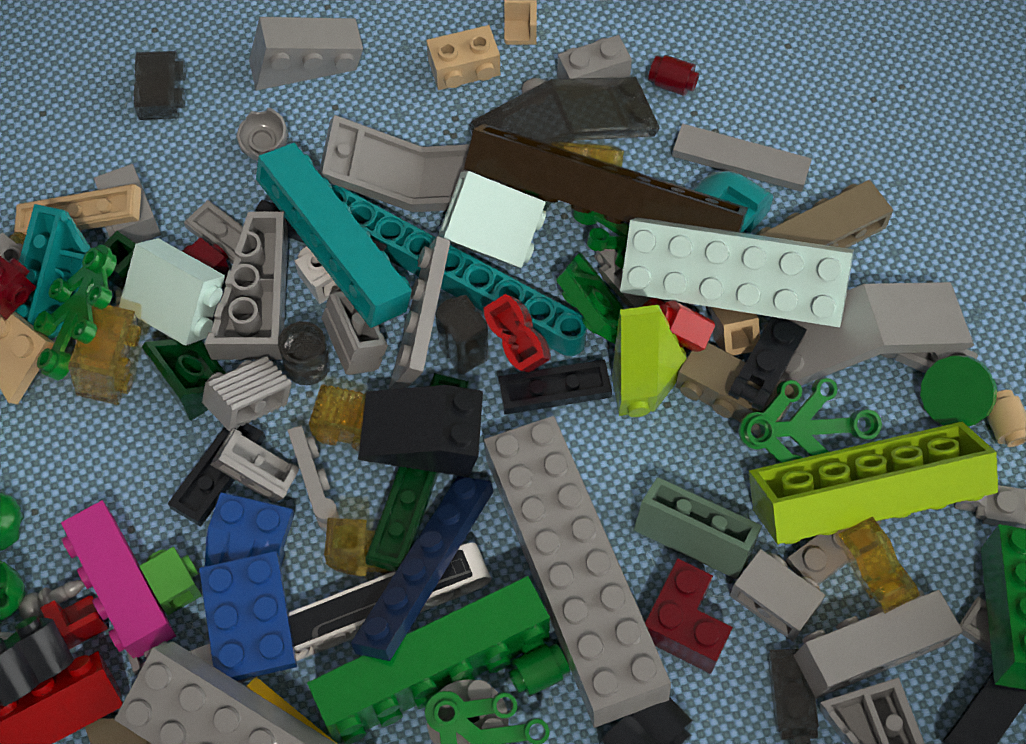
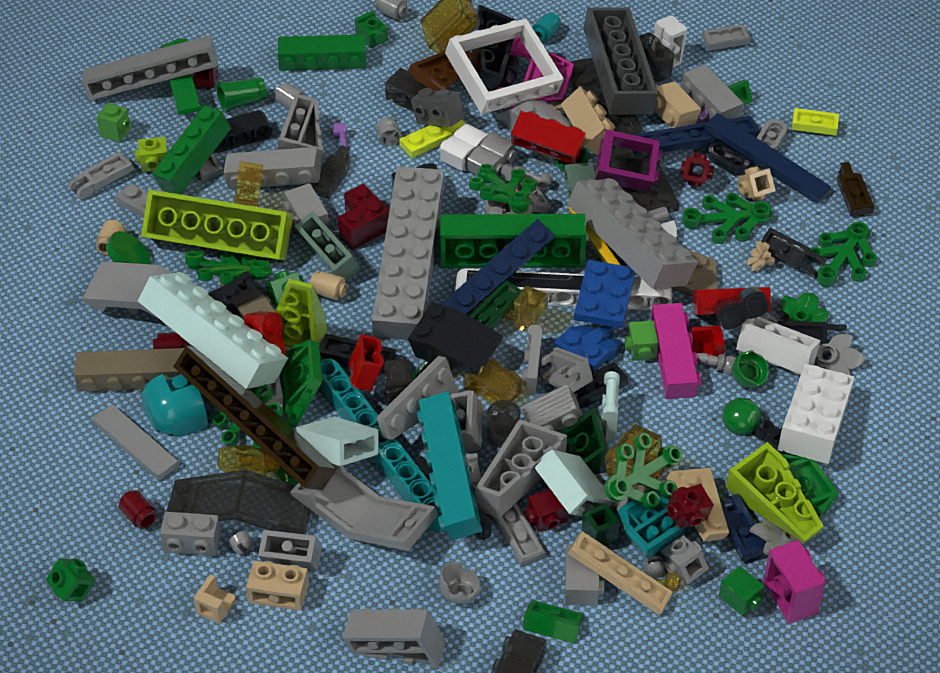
camera: 155 degrees left, 15 degrees down
(145, 153) = (553, 621): none -> green slope
(169, 425) = (610, 405): none -> light aqua plate
(469, 88) = (290, 549): none -> light grey brick
(662, 466) = (329, 285): none -> tan brick
(709, 433) = (276, 286): none -> green brick

